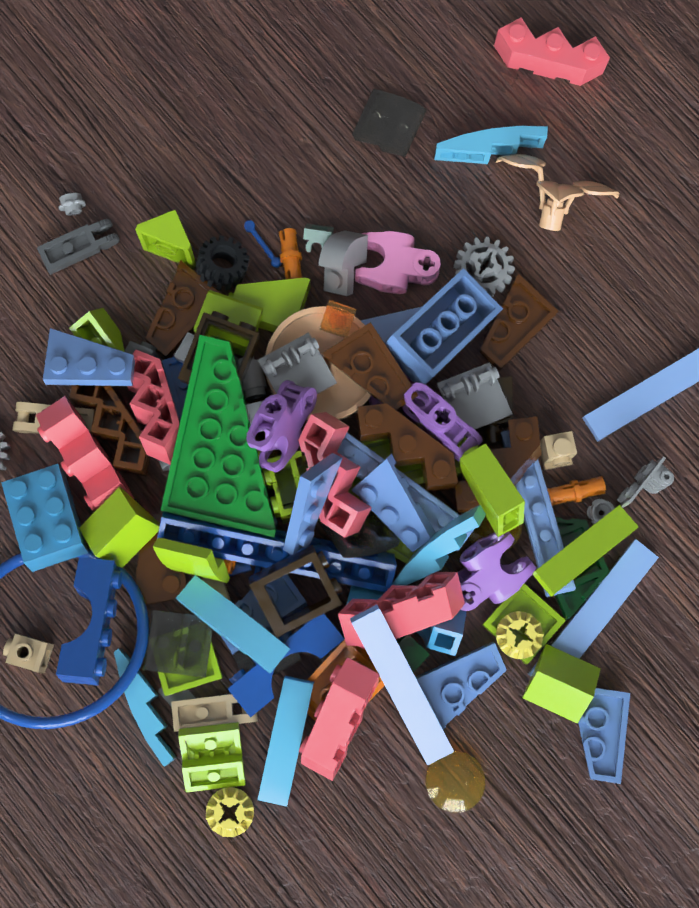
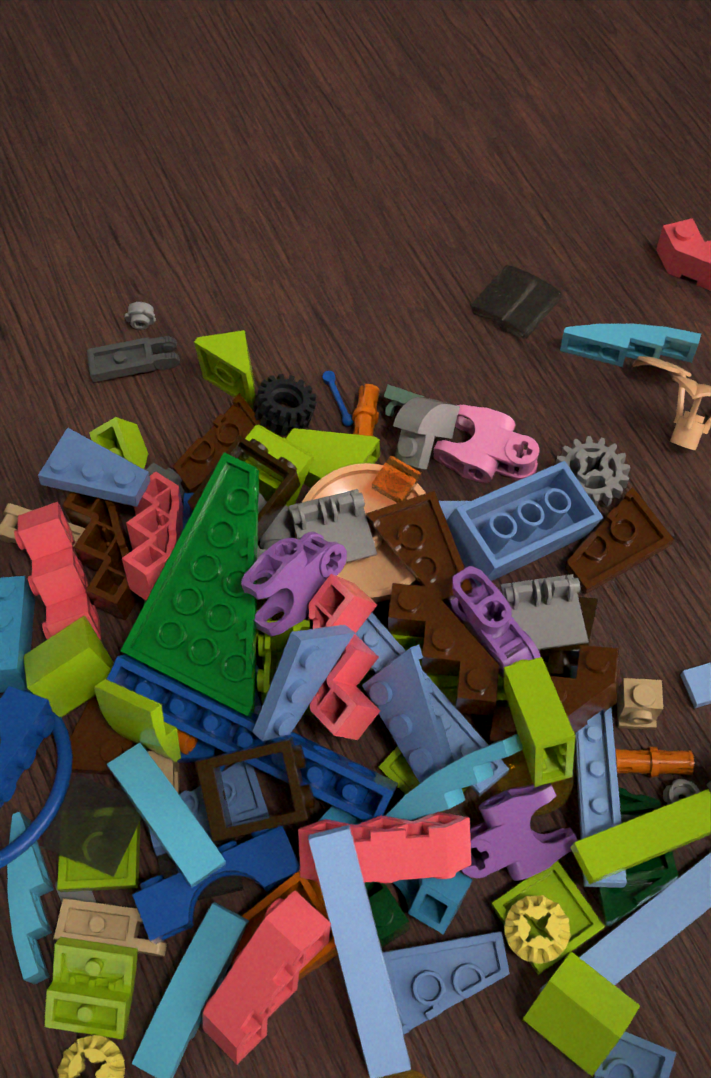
camera: 25 degrees right, 15 degrees down
(370, 540) = (371, 752): clear smoke slope -> none

